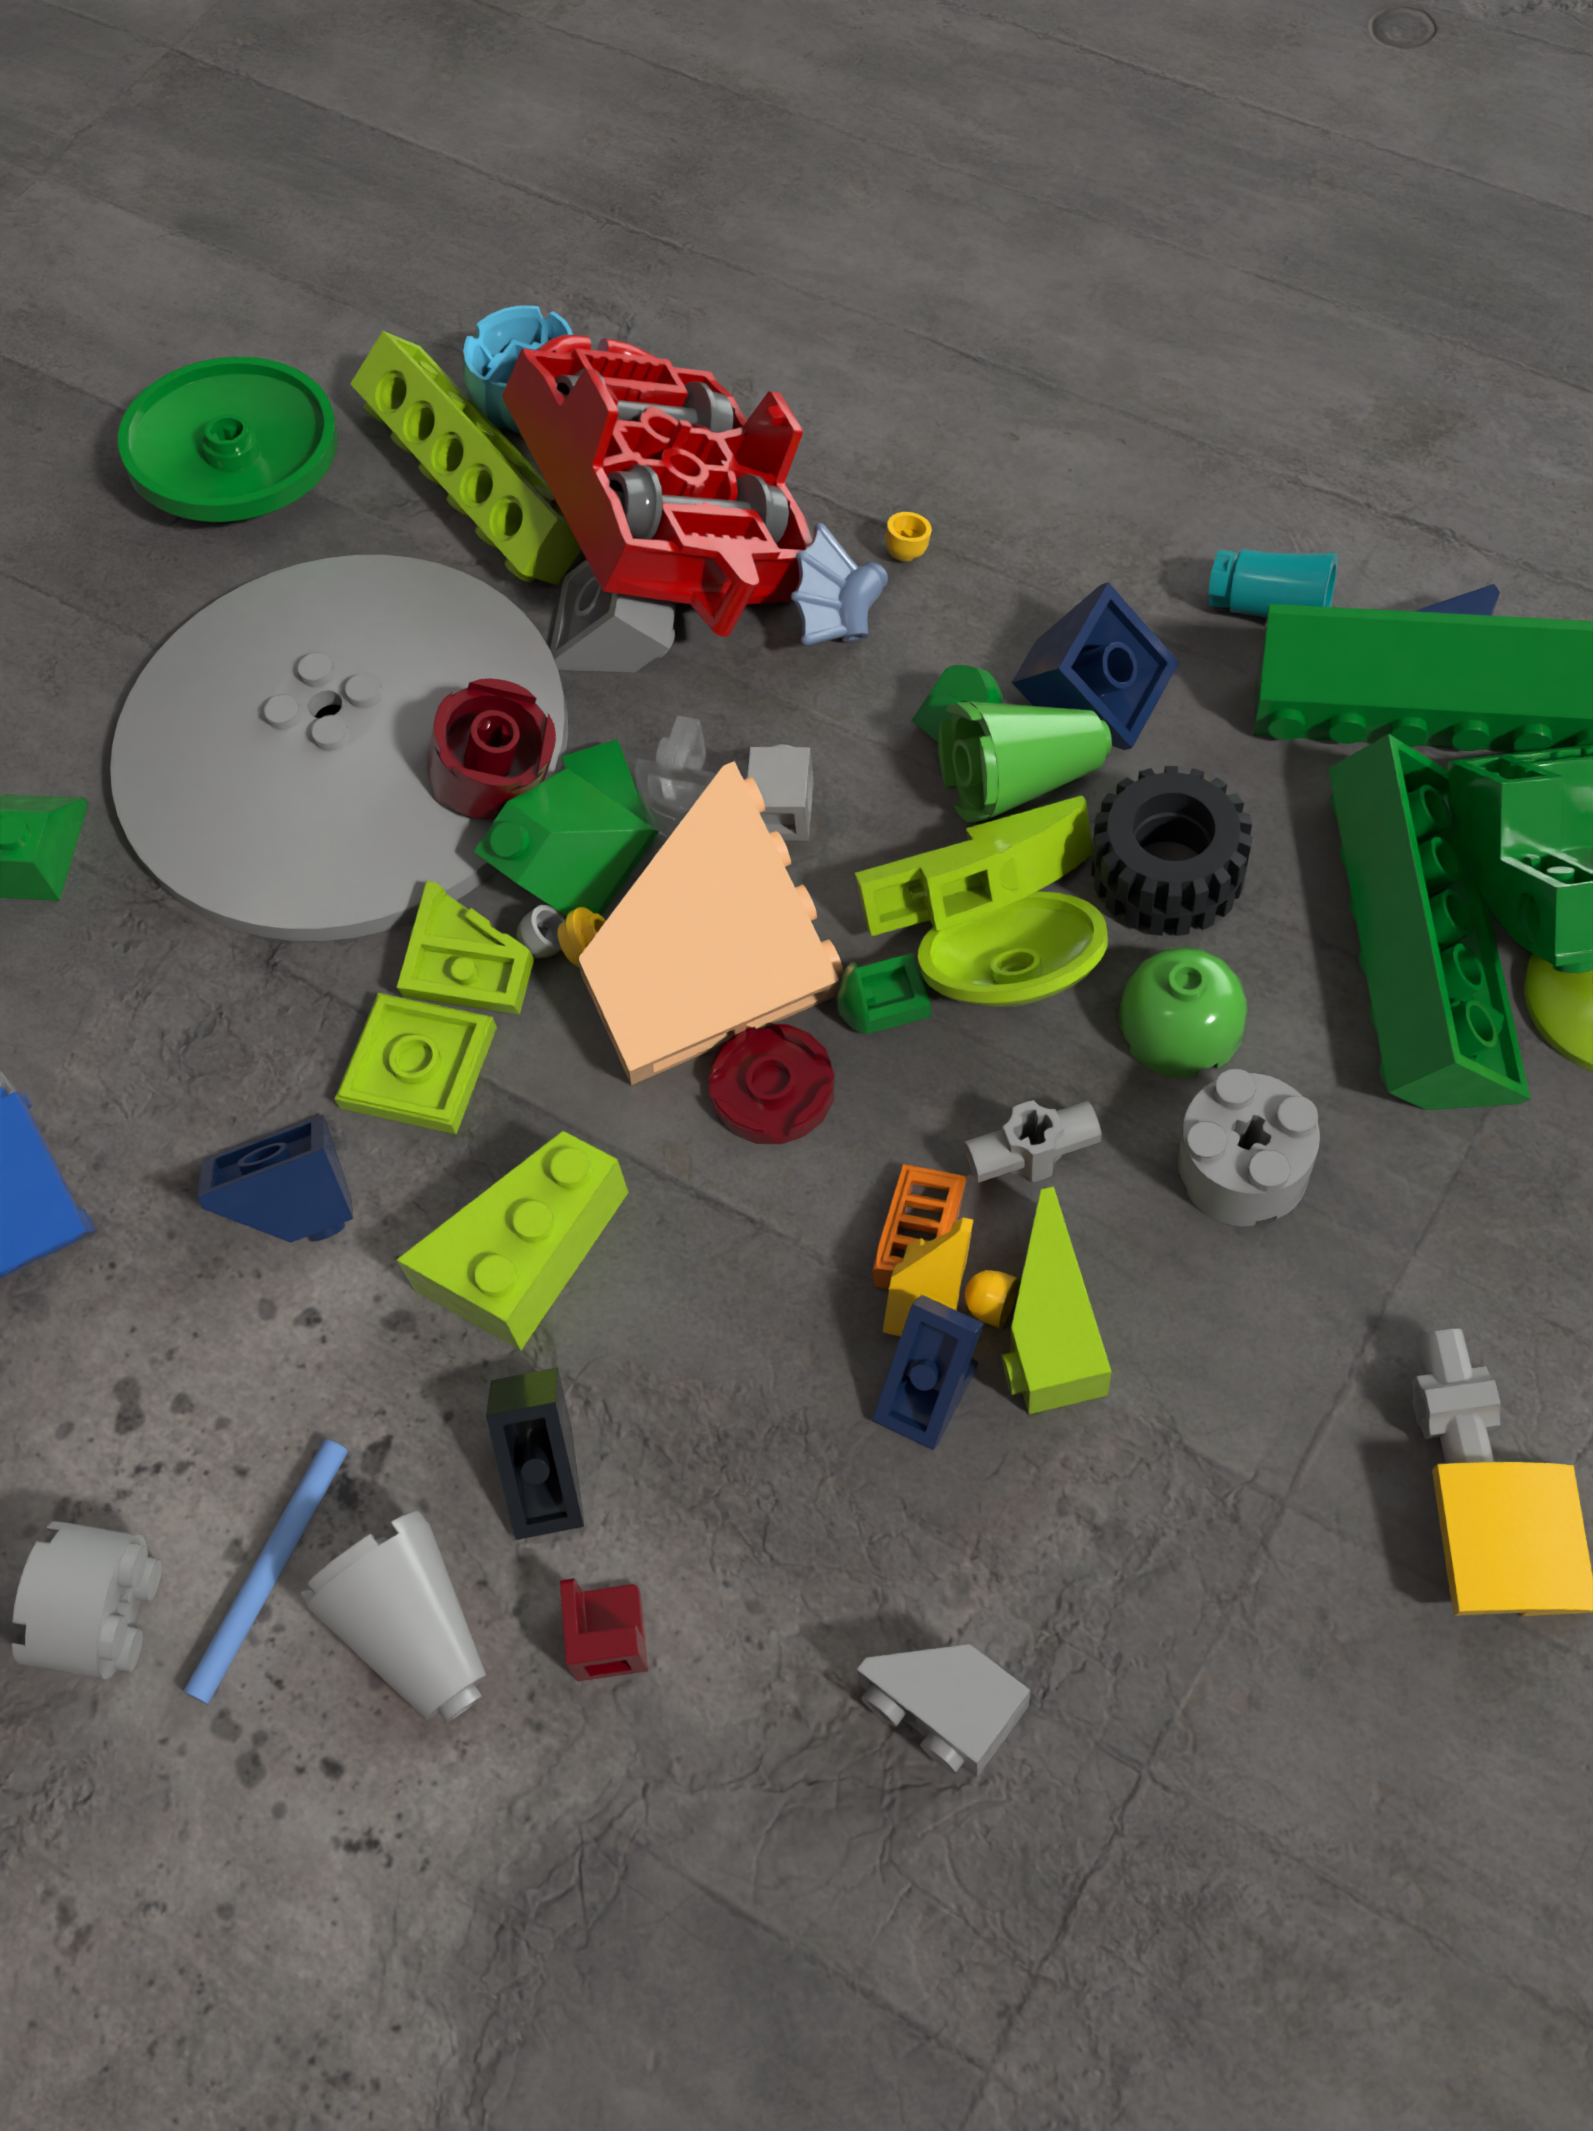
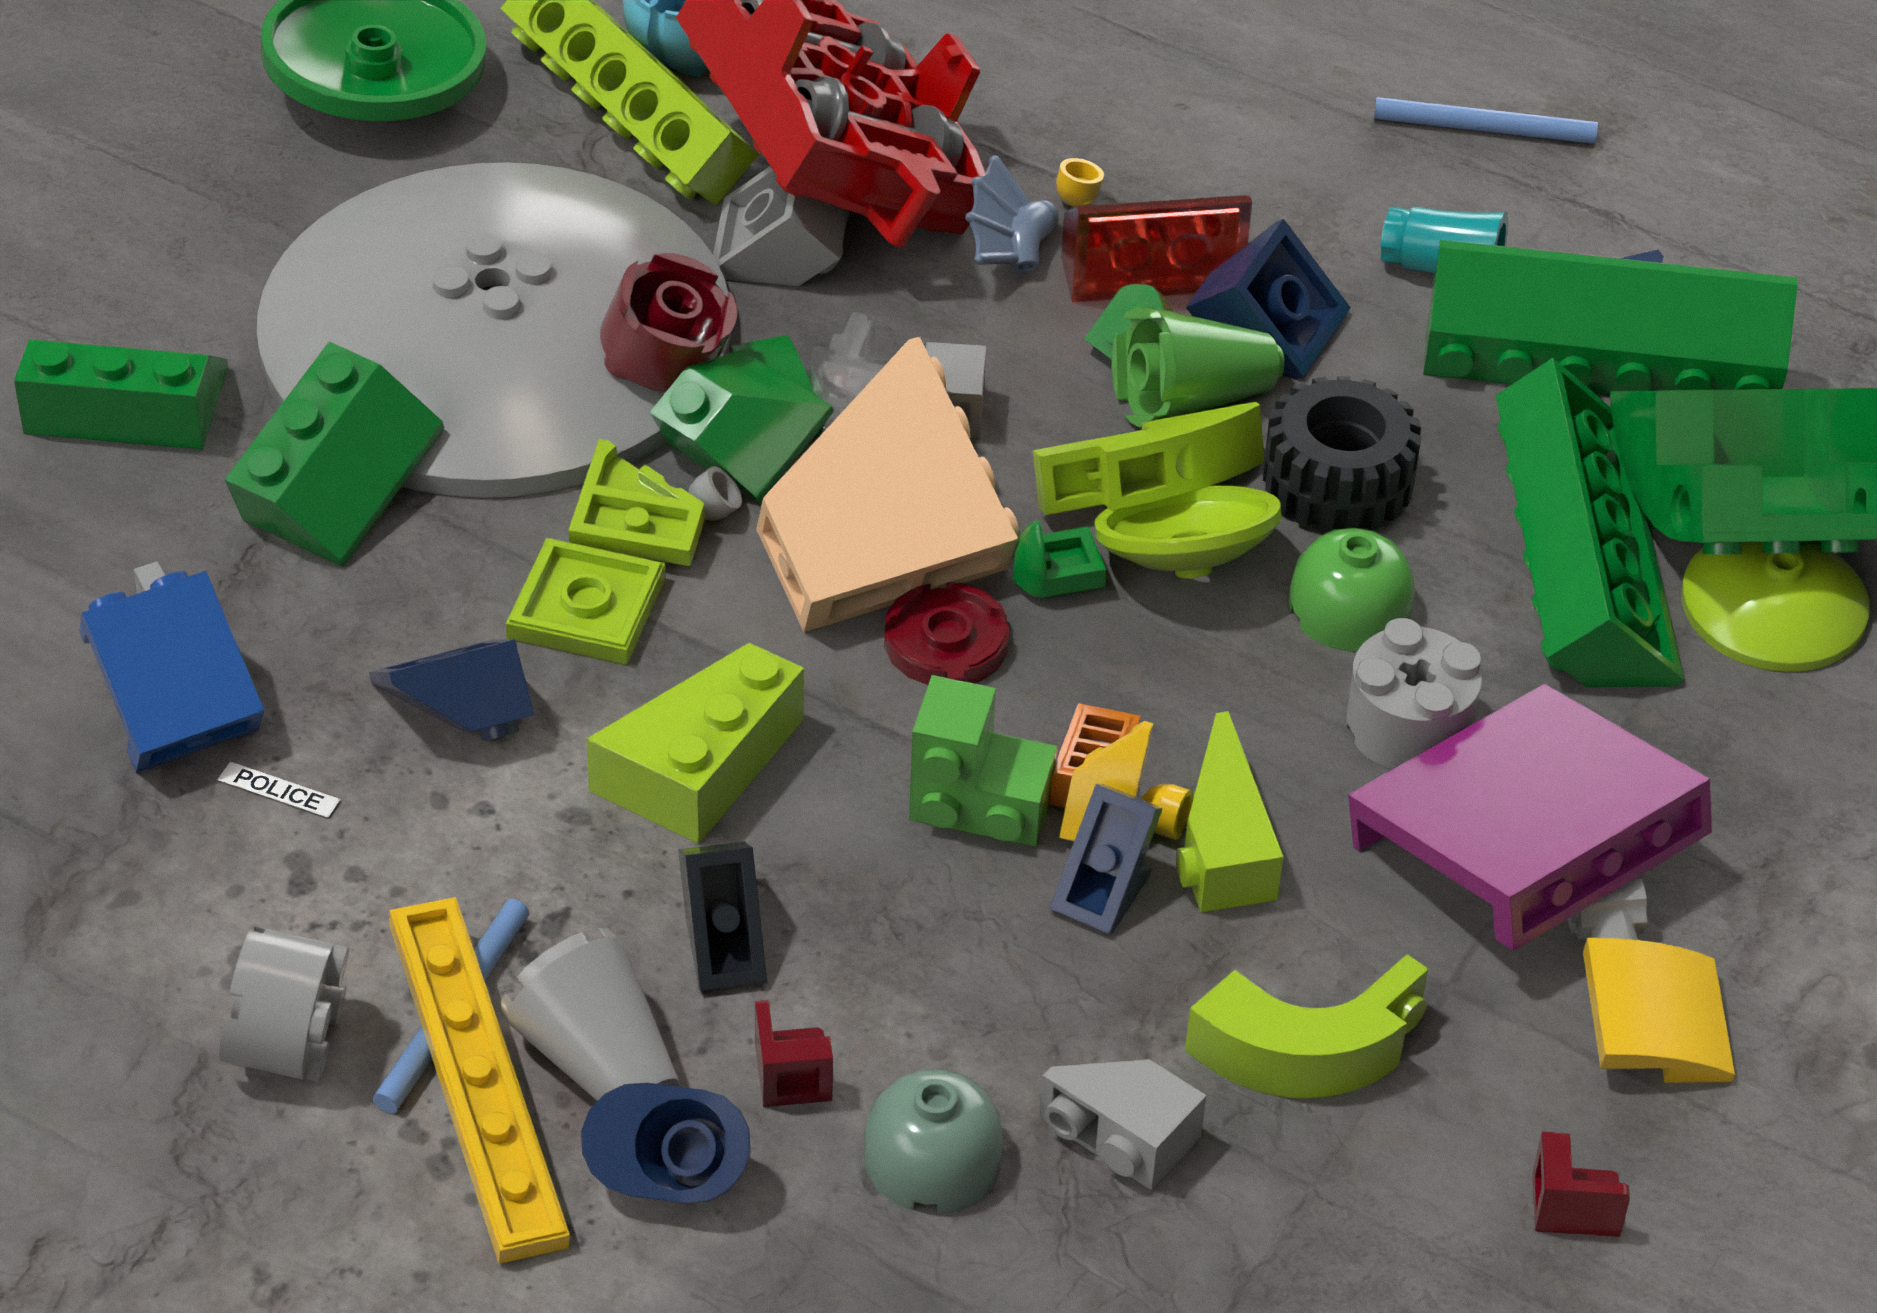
camera: 10 degrees left, 15 degrees down
(112, 1304) = (279, 789): none -> white sticker
(168, 916) = (333, 455): none -> green slope
(285, 1677) = (478, 1081): none -> yellow tile
(465, 1767) = (666, 1142): none -> dark blue piece
(578, 931) = (750, 495): yellow plate -> none
(748, 1735) = (933, 1141): none -> sand green cylinder
(794, 1271) = (969, 774): none -> bright green brick
(978, 612) = (1151, 244): none -> clear red slope
(1053, 1133) = (1205, 685): light grey axle -> none
(1139, 1607) = (1302, 1049): none -> lime arch
(1314, 432) = (1486, 120): none -> medium blue bar
(1379, 1301) = (1537, 810): none -> panel
(1430, 1779) = (1575, 1198): none -> dark red panel

